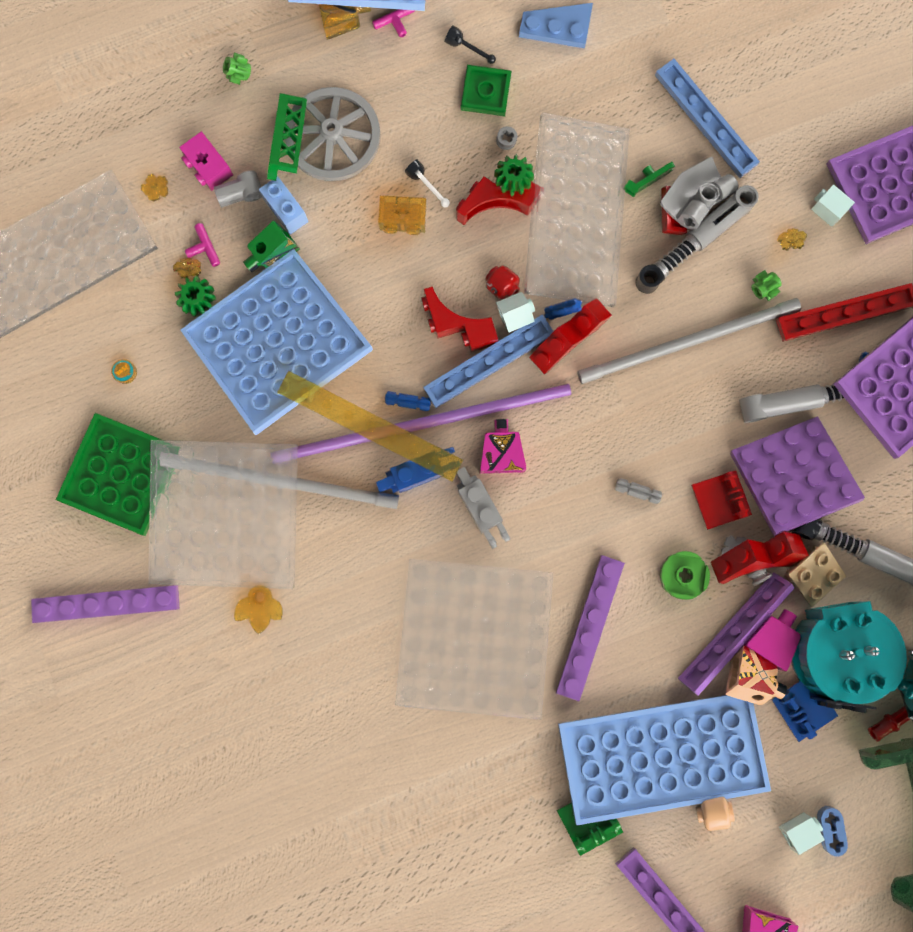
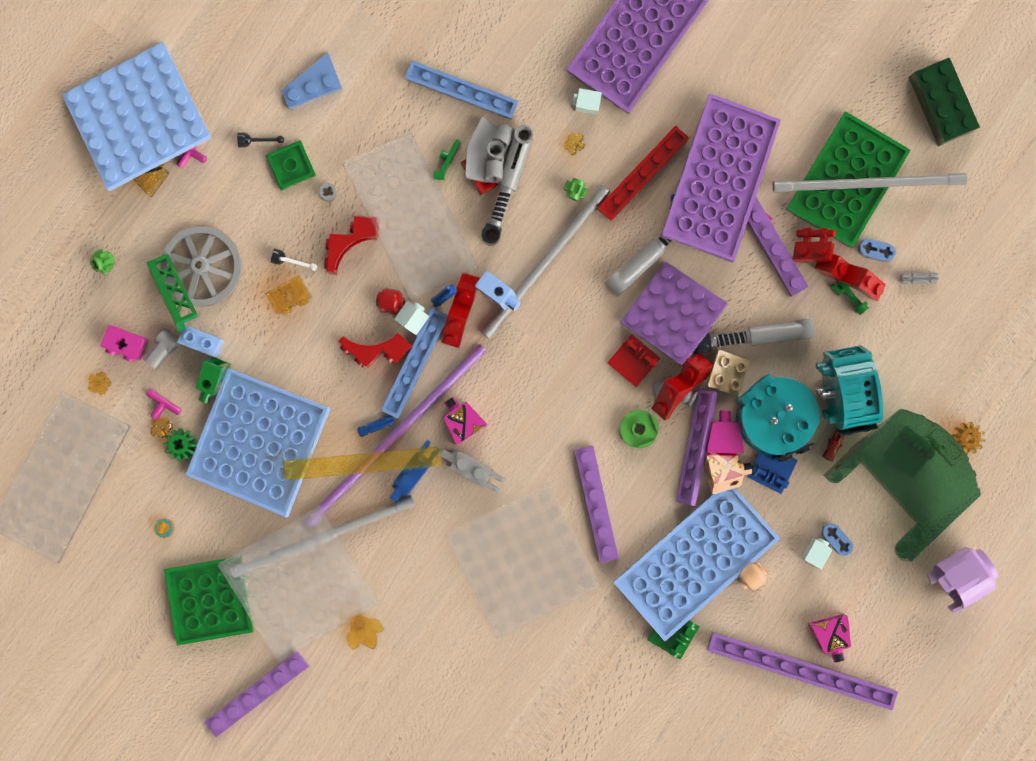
camera: 30 degrees left, 5 degrees up
(514, 175) = (347, 228): green gear -> none
(622, 337) = (497, 292): none -> light blue torso
(638, 491) = (573, 390): light grey axle -> none

